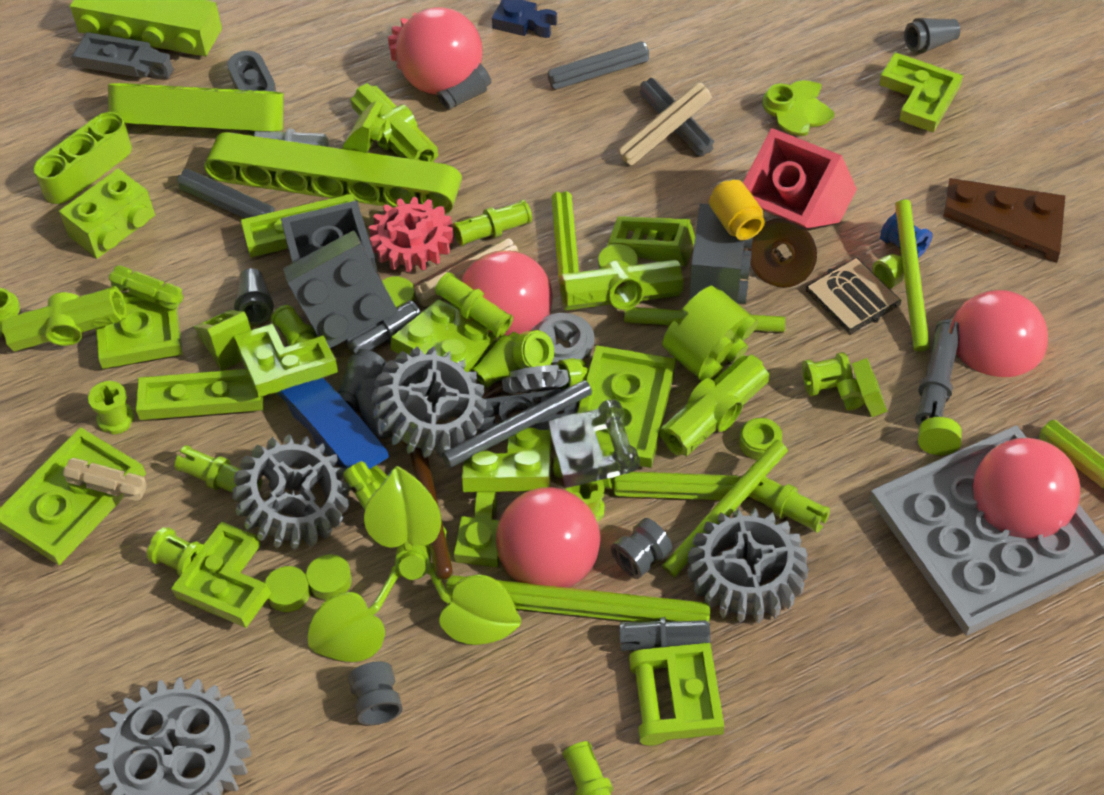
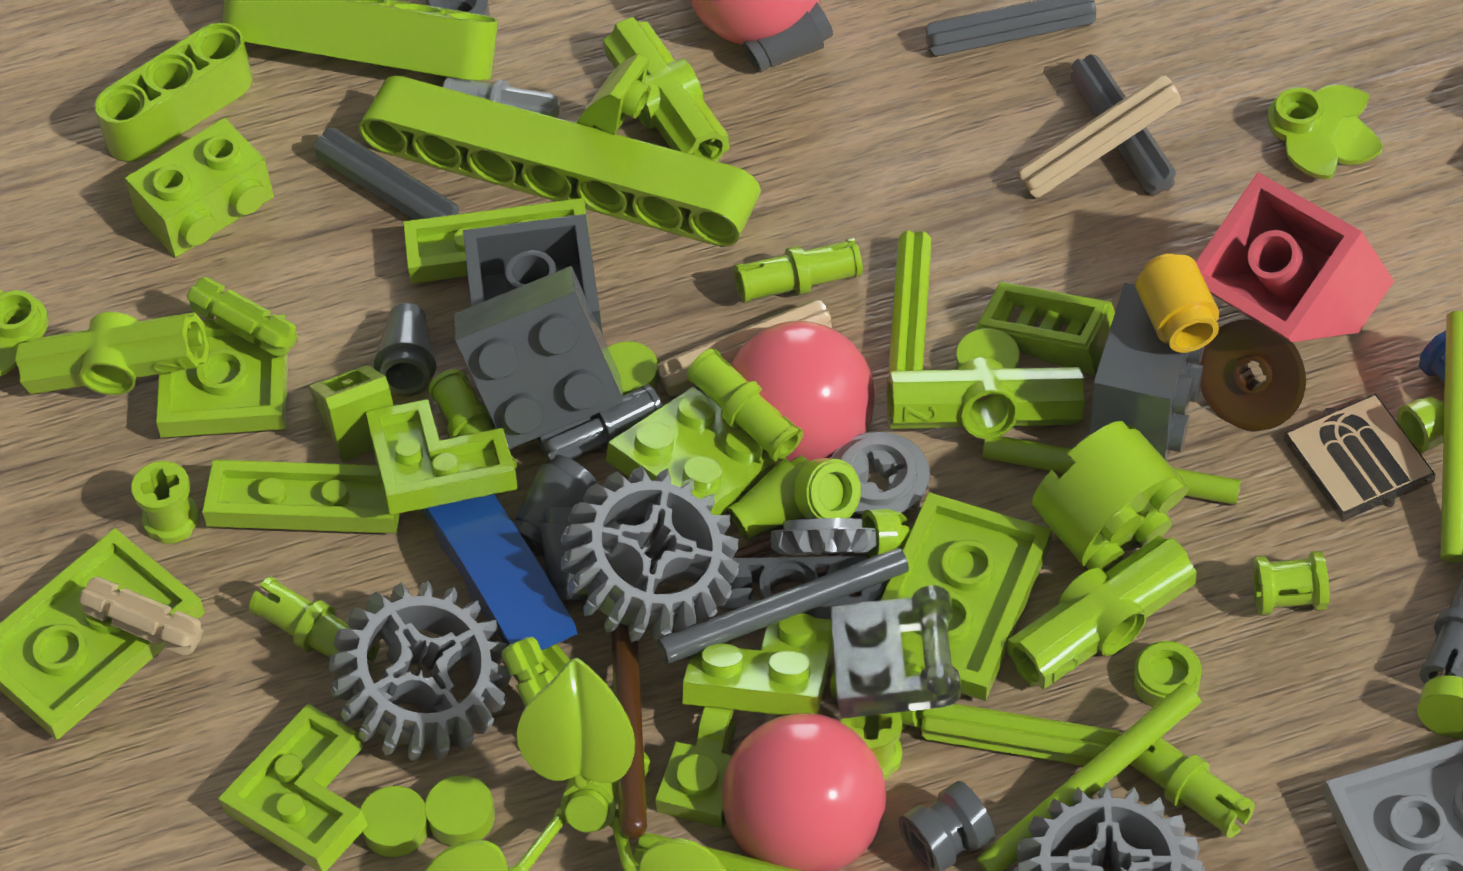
camera: 10 degrees right, 0 degrees up
(172, 550) = (228, 738): lime bush -> none
(411, 234) = (666, 275): coral gear -> none
(862, 389) = (1344, 615): lime tile -> none

